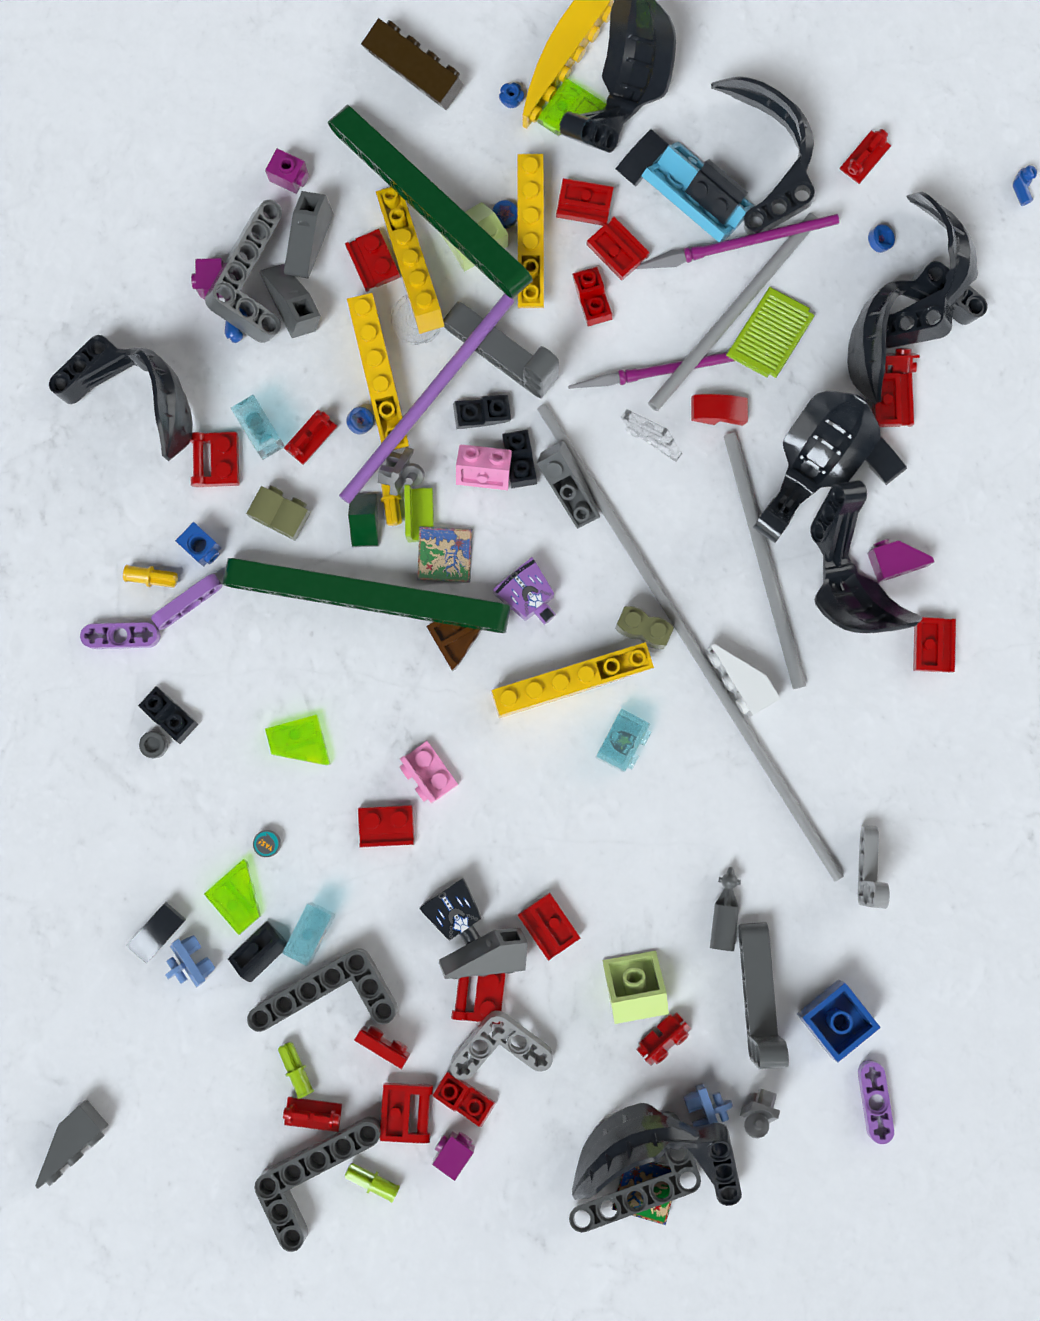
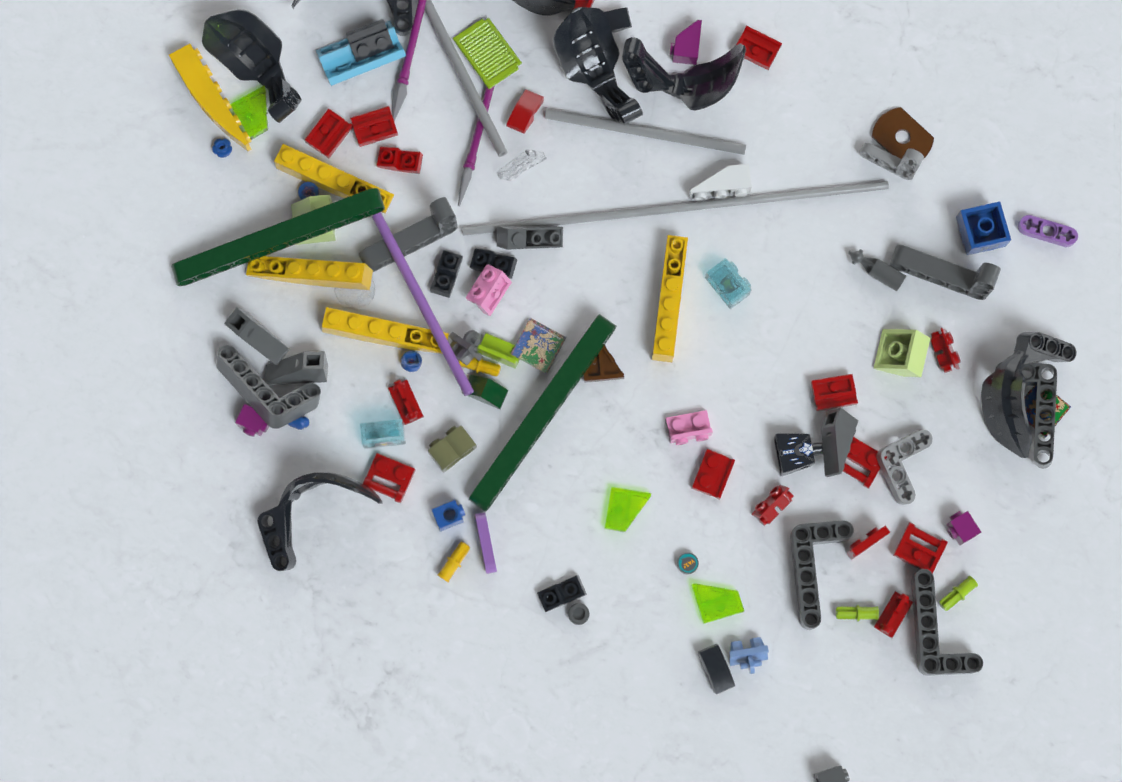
camera: 70 degrees left, 5 degrees down
(100, 643) = (499, 591): medium lavender beam -> none
(258, 952) = (762, 603): black slope -> none
(287, 171) = (199, 329): magenta brick -> none
(309, 933) = (766, 559): clear light blue brick -> none
(369, 906) = (778, 497): none -> red hinge
(372, 260) = (295, 300): red plate -> none
(412, 63) = (165, 204): dark brown brick -> none
(464, 1099) = (928, 504): red slope -> none
(527, 592) = (592, 300): medium lavender torso -> none
(638, 625) = (651, 235): olive brick -> none
(642, 155) = (316, 78): black slope -> none
(700, 1099) = (1004, 340): medium blue hips -> none
(760, 1113) = (1022, 307): flat silver hips -> none
(929, 857) = (899, 120): none -> reddish brown piece

